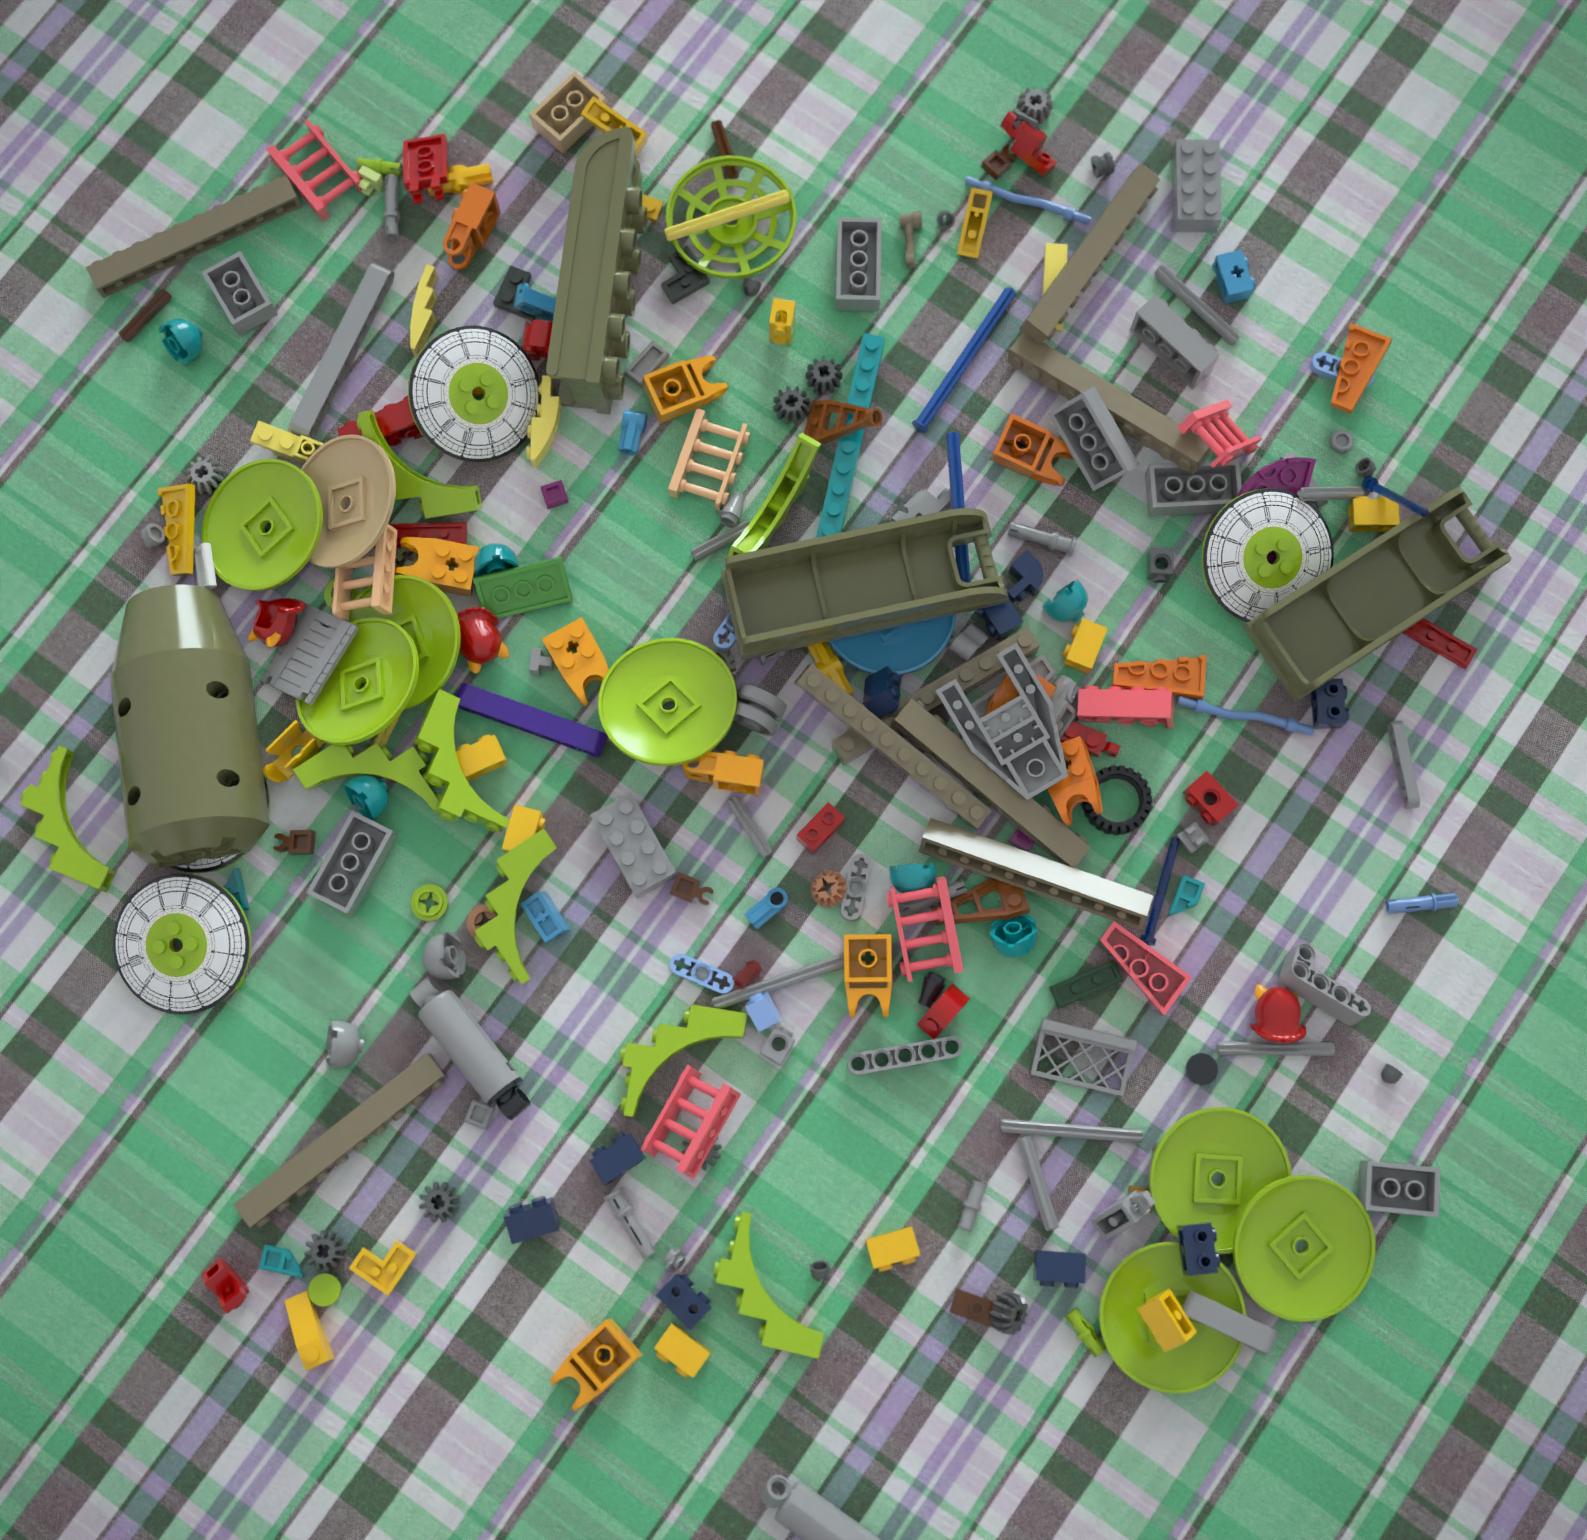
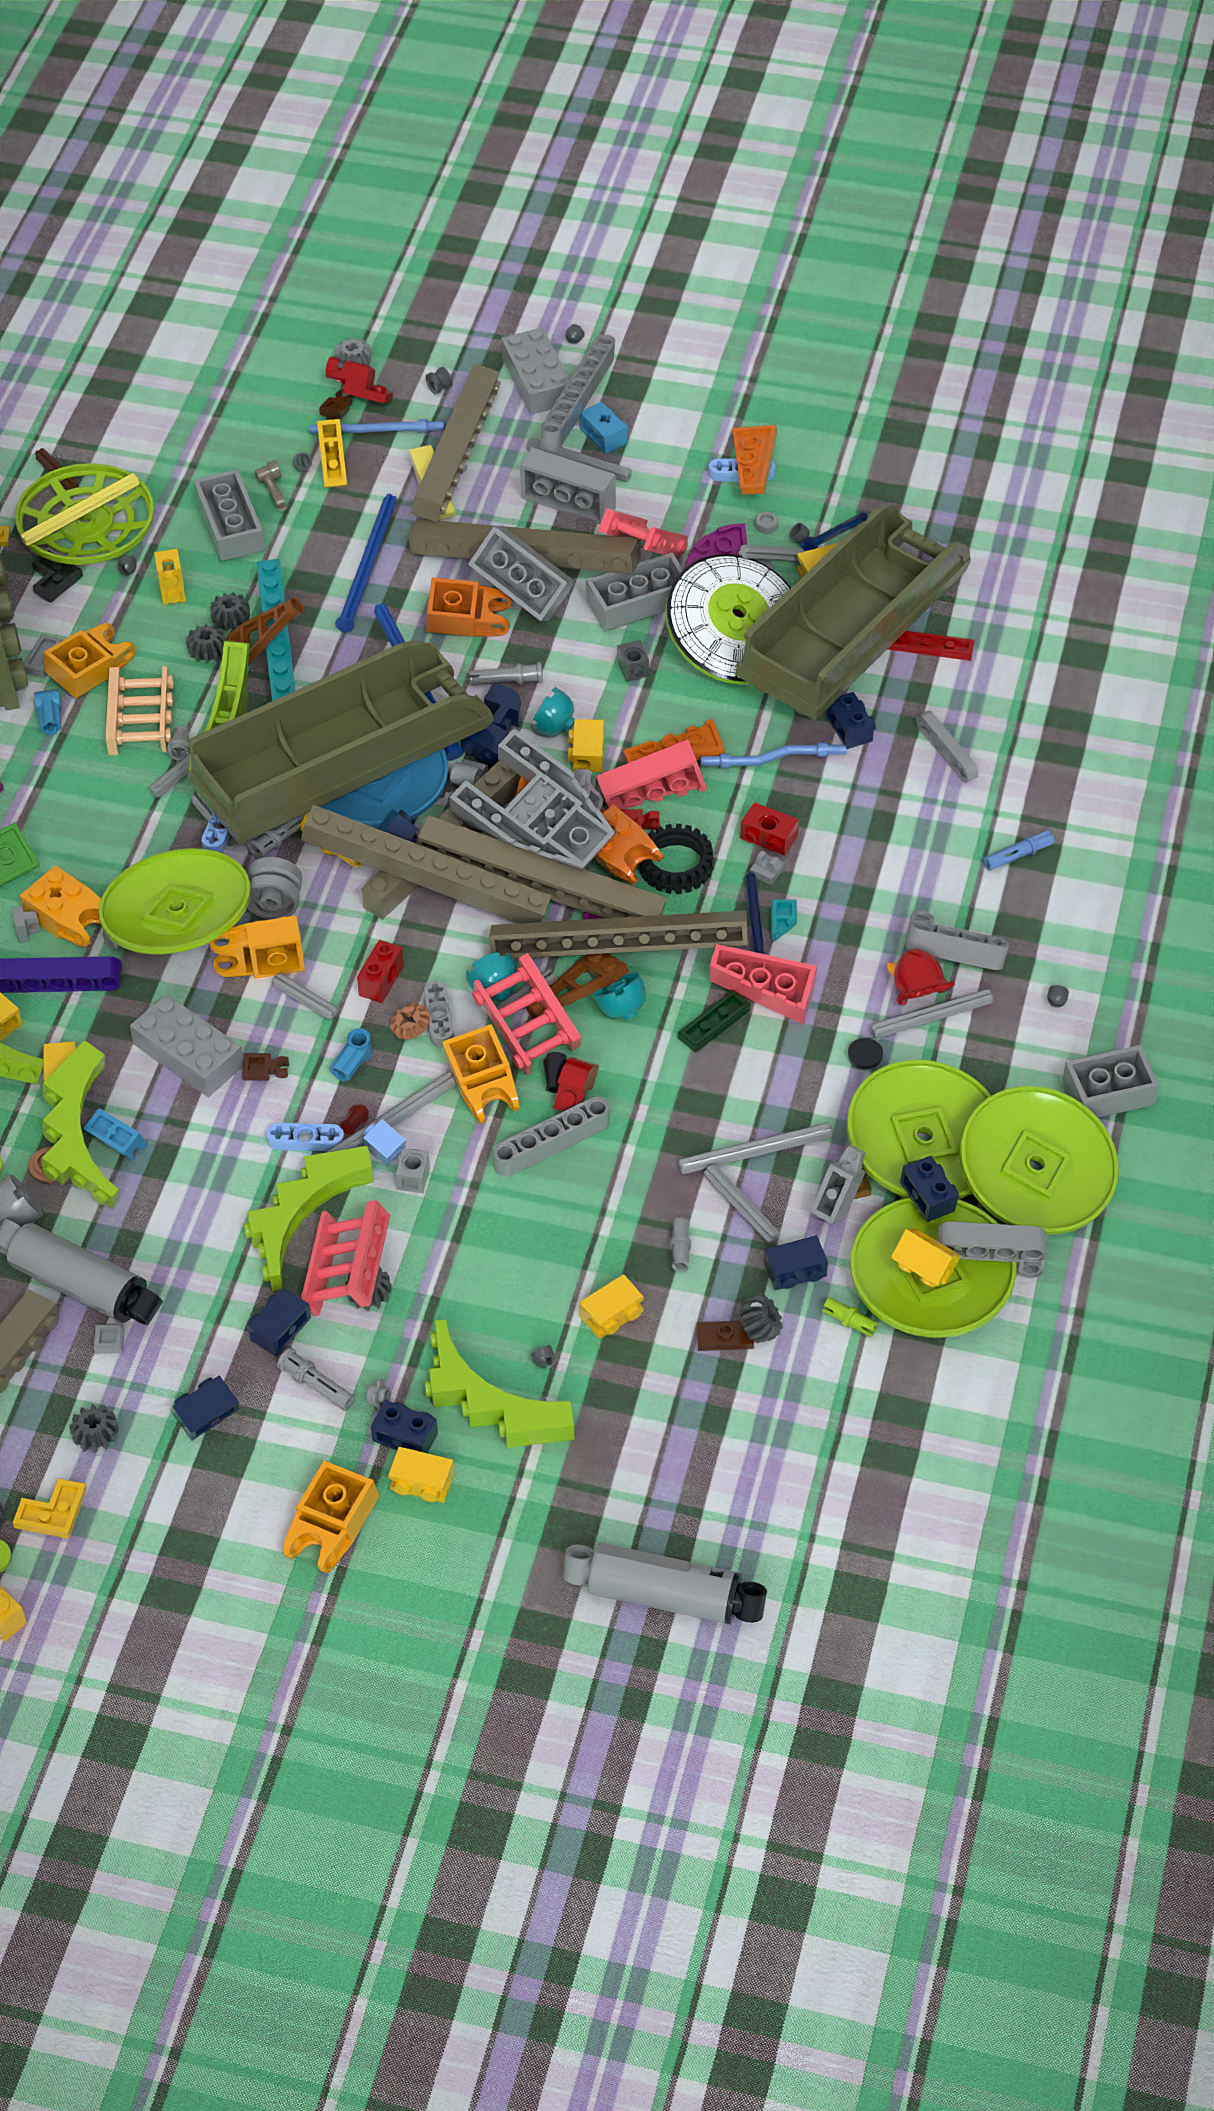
camera: 20 degrees left, 25 degrees down
(1086, 1036) = (733, 1059): light grey fence -> none
(1222, 235) = (577, 393): none -> light grey beam
(1248, 150) = (574, 334): none -> dark grey hinge

